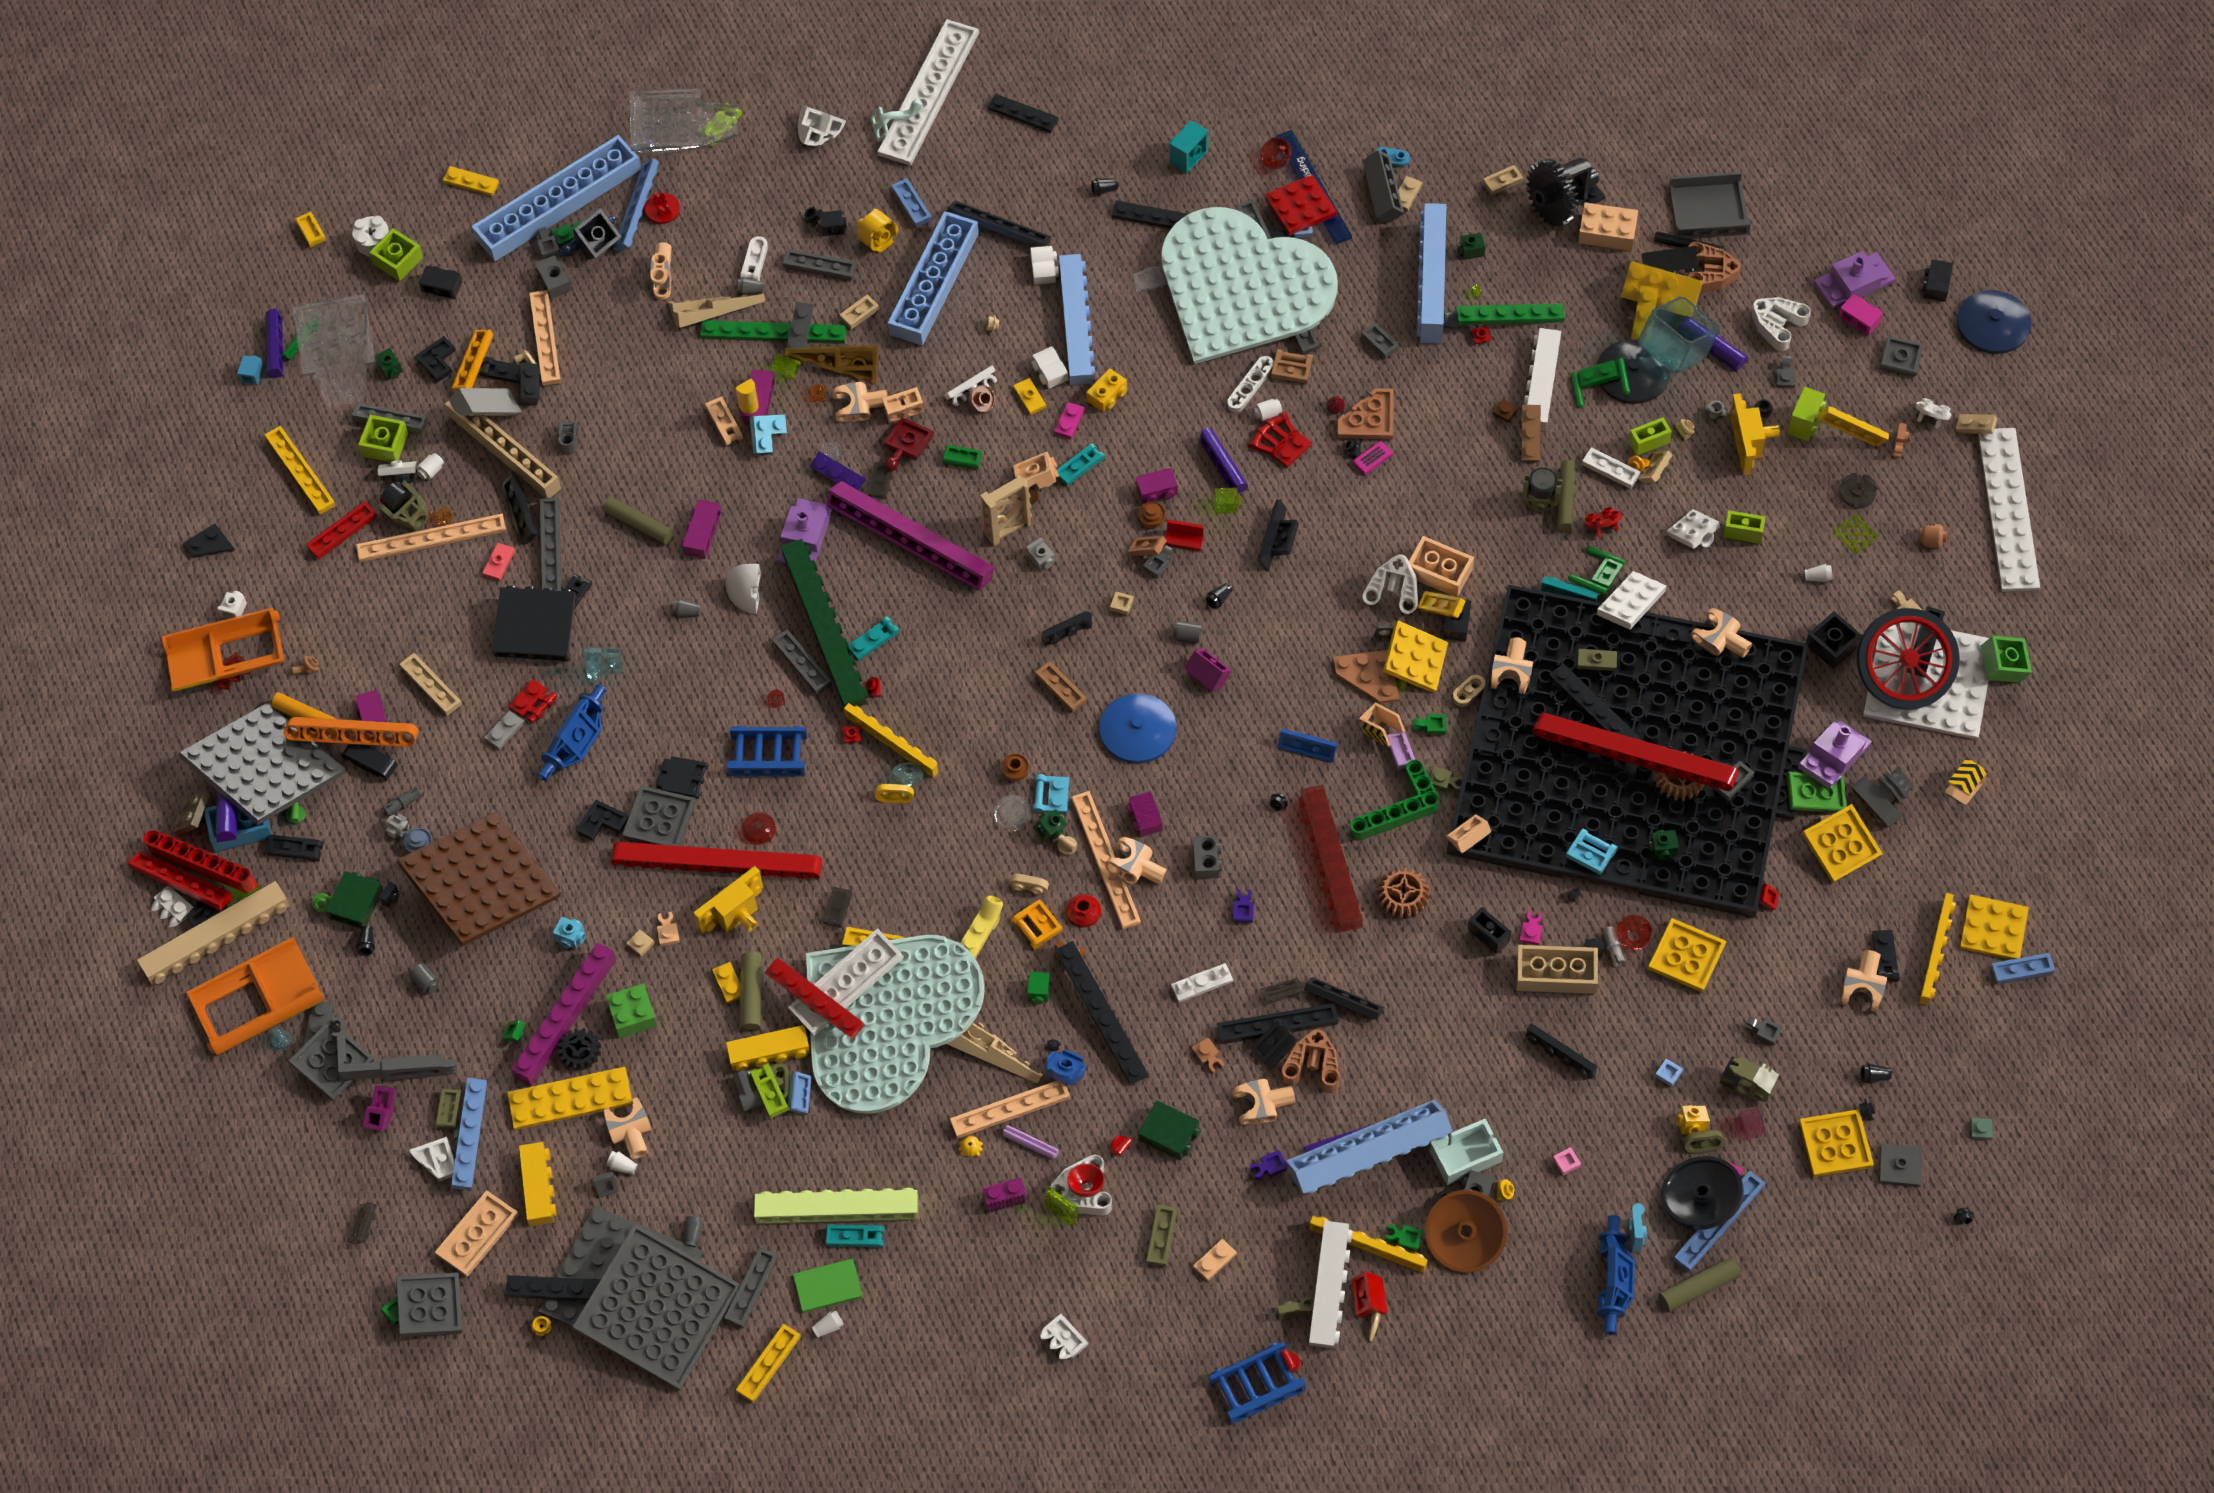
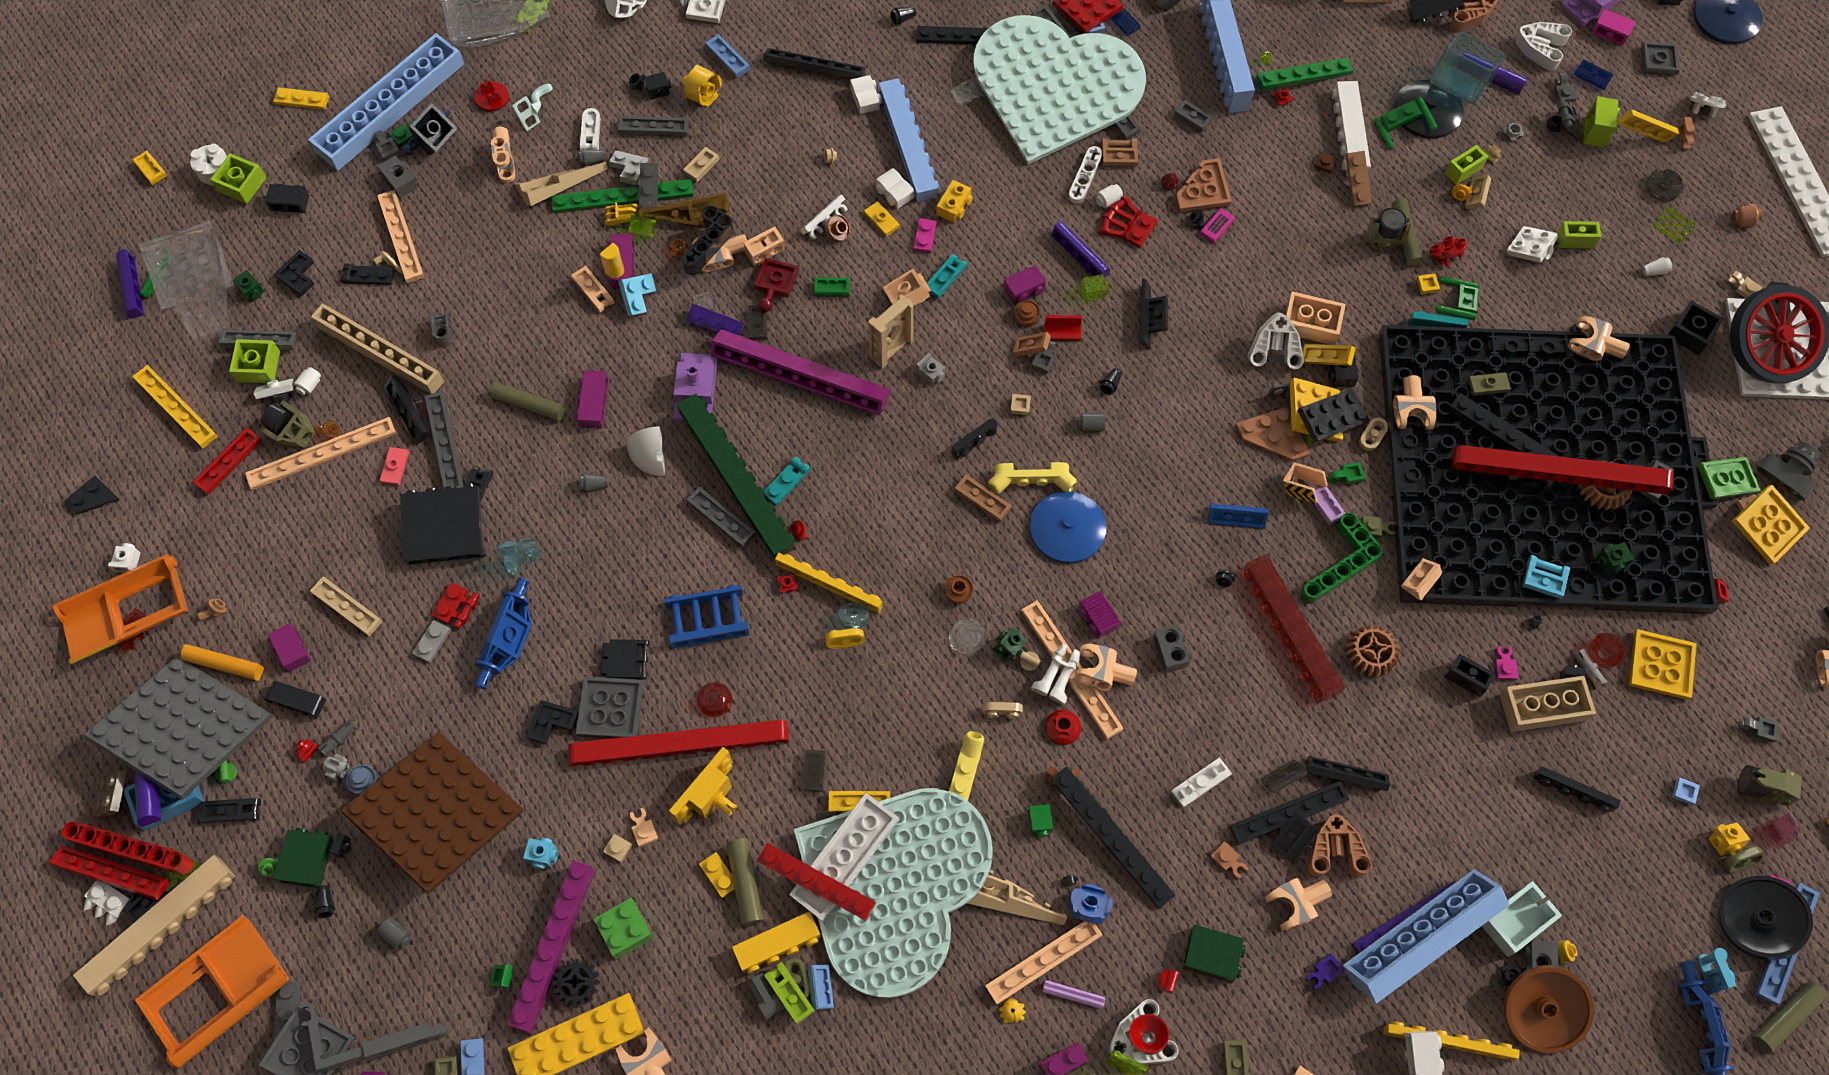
camera: 15 degrees left, 5 degrees up
(250, 370) = (108, 313): dark azure brick -> none
(281, 1038) = (248, 1033): clear light blue plate -> none
(322, 725) = (279, 675): orange beam -> none
(371, 806) = (305, 749): none -> red plate
(473, 359) = (332, 271): light orange brick -> none
(484, 402) = (349, 308): light grey brick -> none
(528, 383) = (392, 283): black brick -> none
(636, 204) = (465, 98): medium blue plate -> none
(701, 228) = (532, 108): none -> light aqua piece
(766, 350) = (619, 214): none -> yellow arm
(776, 693) = (697, 559): clear red bush -> none
(786, 300) = (629, 164): none -> light grey plate
(830, 407) = (695, 260): none -> black beam
(933, 278) = (764, 122): light blue brick -> none
(1041, 919) = (1026, 746): light orange plate -> none
(1057, 794) = (1006, 609): medium azure plate -> none
(1084, 877) = (1057, 693): none -> white piece
(1139, 676) = (1005, 475): none -> light yellow plate
(1207, 670) = (1122, 457): magenta brick -> none
(1243, 909) = (1221, 698): dark purple plate -> none
(1408, 1237) = (1487, 1025): green plate -> none
(1429, 664) = (1333, 415): none -> black plate
(1471, 246) = (1251, 18): dark green brick -> none
(1566, 1161) = (1618, 907): bright pink plate -> none
(1572, 551) = (1428, 284): none -> yellow plate
(1611, 468) = (1438, 200): white plate -> none
(1631, 600) = (1500, 321): white plate -> none
(1646, 303) = (1427, 53): yellow plate -> none
(1669, 284) = (1432, 28): yellow brick -> none
(1749, 432) = (1554, 147): yellow brick -> none
(1778, 404) = (1570, 117): none -> dark grey plate
(1822, 362) = (1593, 74): none -> clear blue plate
(1834, 753) = (1735, 437): medium lavender brick -> none
(1976, 424) = (1748, 107): tan plate -> none

